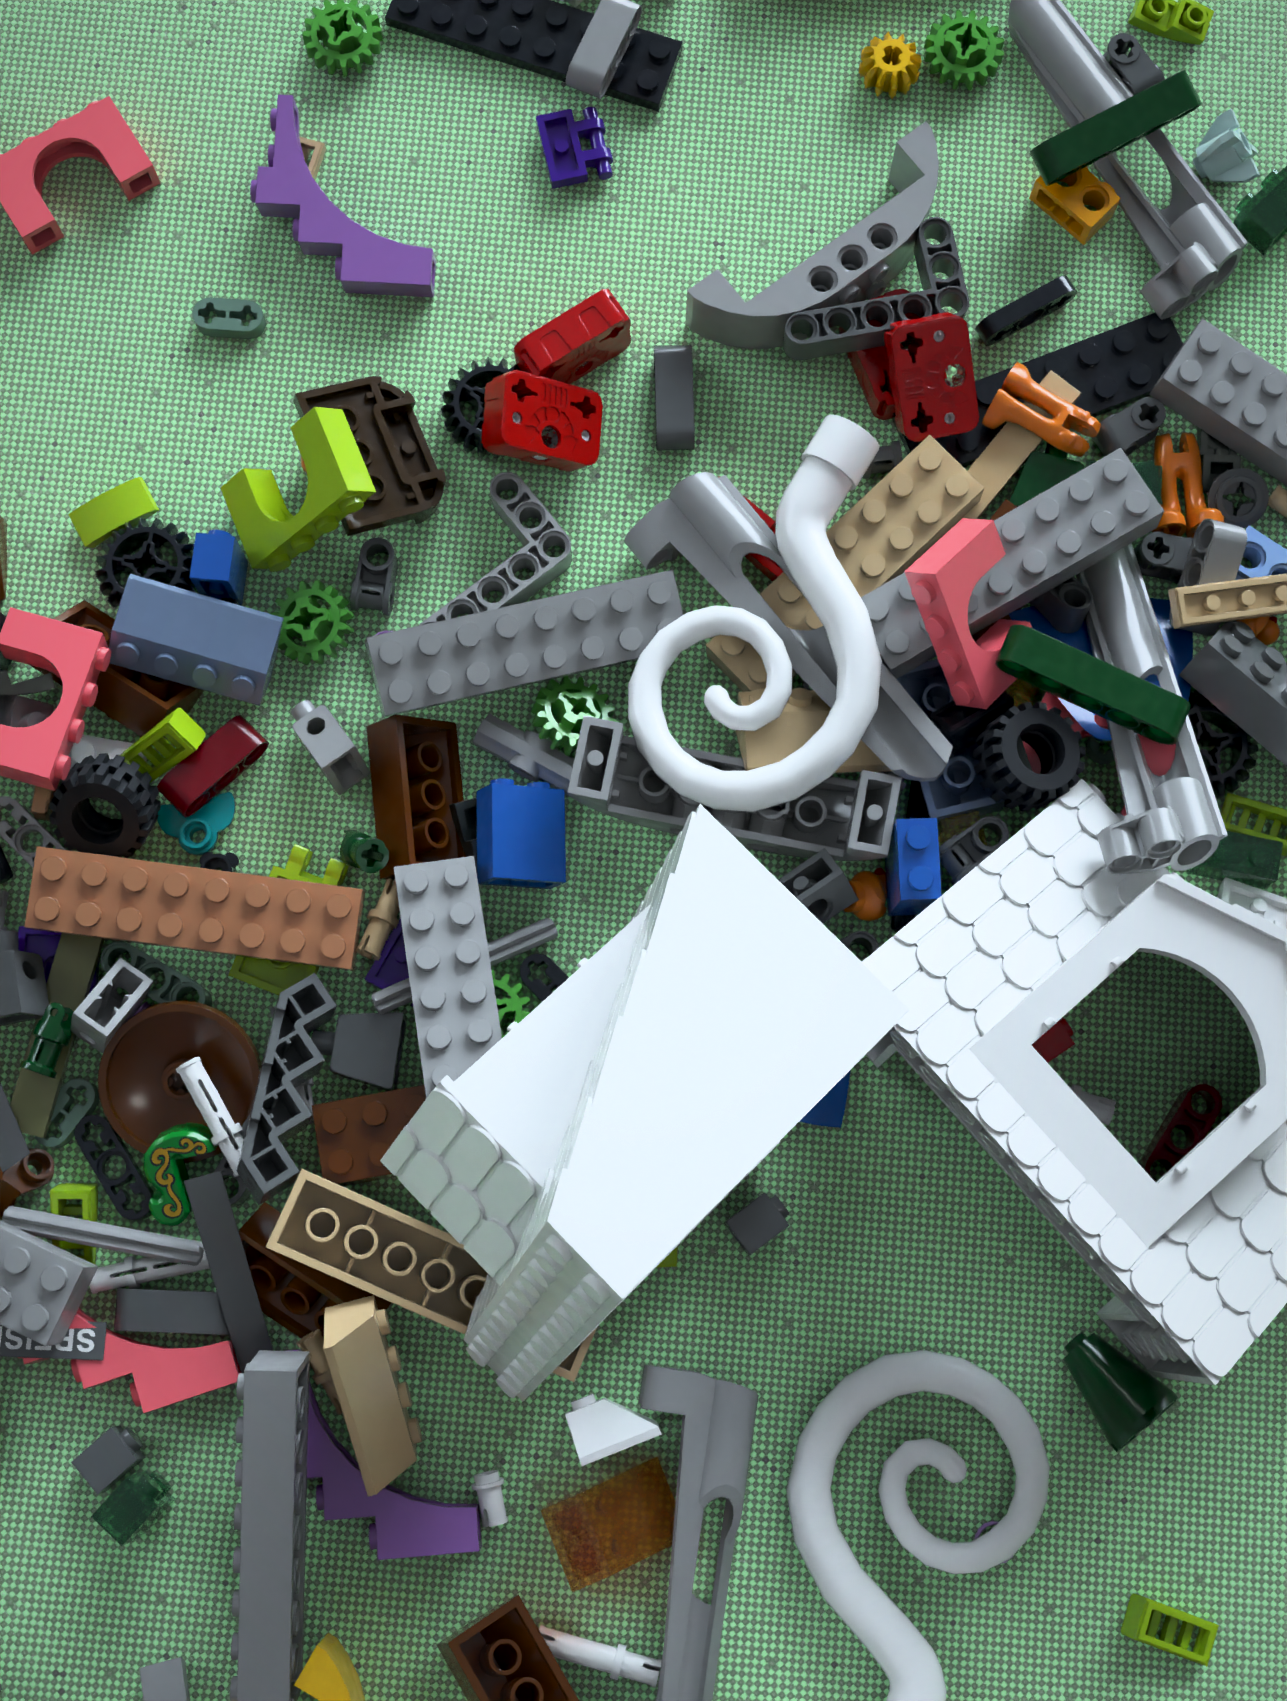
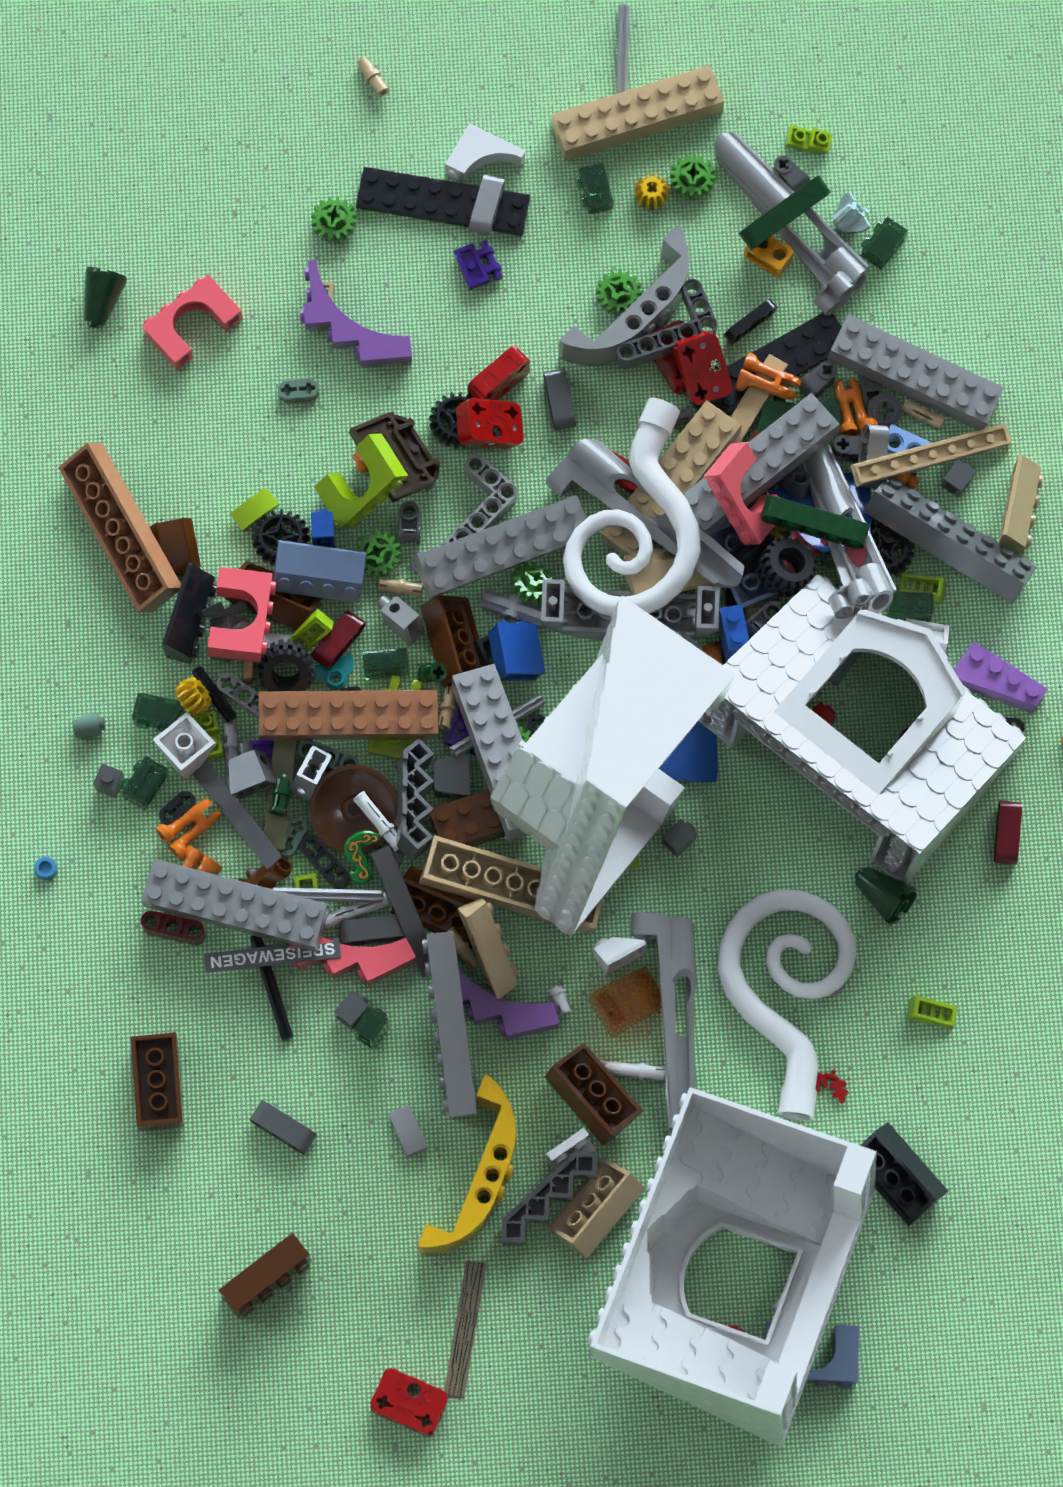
camera: 10 degrees left, 5 degrees down
(287, 821) = (385, 663): none -> clear green brick
(340, 687) = (400, 587): none -> tan pin
(794, 46) = (595, 188): none -> clear green brick
(804, 223) = (612, 285): none -> bright green gear

